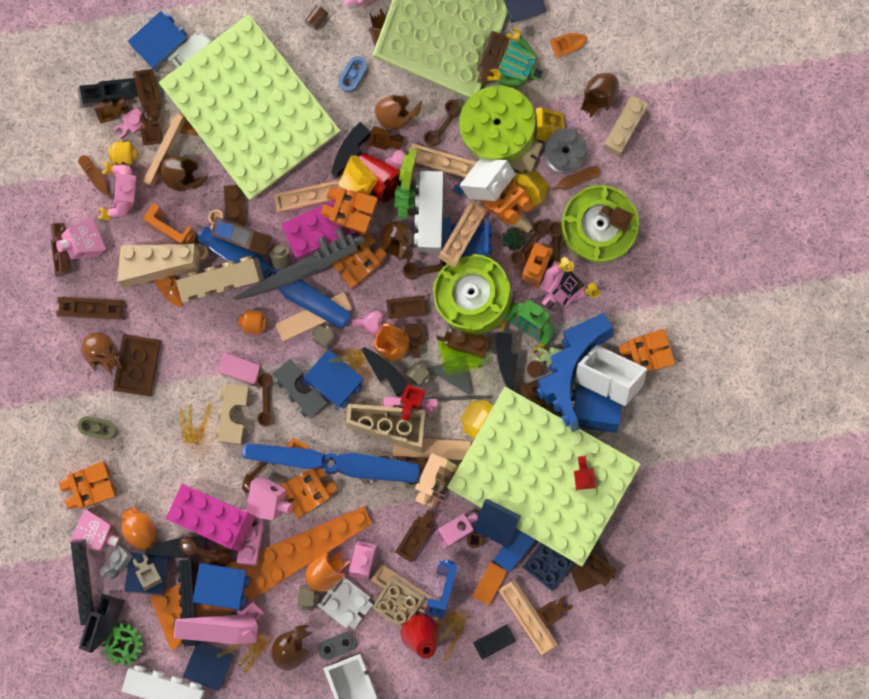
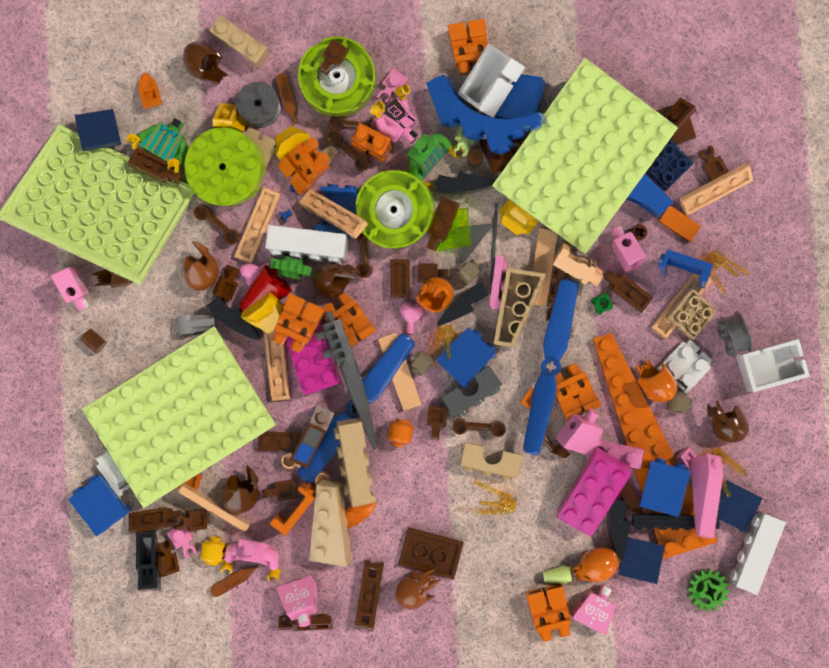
camera: 90 degrees left, 5 degrees up
(82, 579) = (644, 625): black piece -> none
(97, 428) = (491, 598): olive plate -> none
(101, 622) = (686, 609): black slope -> none
(118, 561) = (626, 587): light grey plate -> none
(125, 493) = (558, 575): none -> yellowish green cone
(147, 573) = (645, 559): dark tan plate -> none
(186, 215) = (284, 490): none -> reddish brown plate
(189, 547) = (623, 515): reddish brown bar -> none
(239, 368) = (444, 450): bright pink slope -> none
(270, 357) = (437, 418): none -> reddish brown plate
(279, 256) = (336, 399): dark tan plate -> none
(336, 645) = (724, 379): dark grey plate -> none
(342, 110) = (195, 323): none -> light grey piece
(352, 74) = (156, 310): medium blue plate -> none
(362, 560) = (646, 344): bright pink torso -> none
(380, 646) = (735, 334): none -> flat silver wheel
(395, 511) = (606, 306): none -> green plate
(407, 168) = (261, 260): lime plate -> none
(411, 399) = (496, 279): red plate -> none
(420, 635) = (730, 293): red cone -> none
(487, 179) = (280, 182): white brick -> none
(494, 641) = (736, 224): black tile -> none
(497, 523) = (627, 206): dark blue tile -> none
(513, 238) = (342, 164): clear green gear -> none
(584, 477) = (593, 114): red plate -> none
(602, 280) = (391, 82): none -> bright pink plate

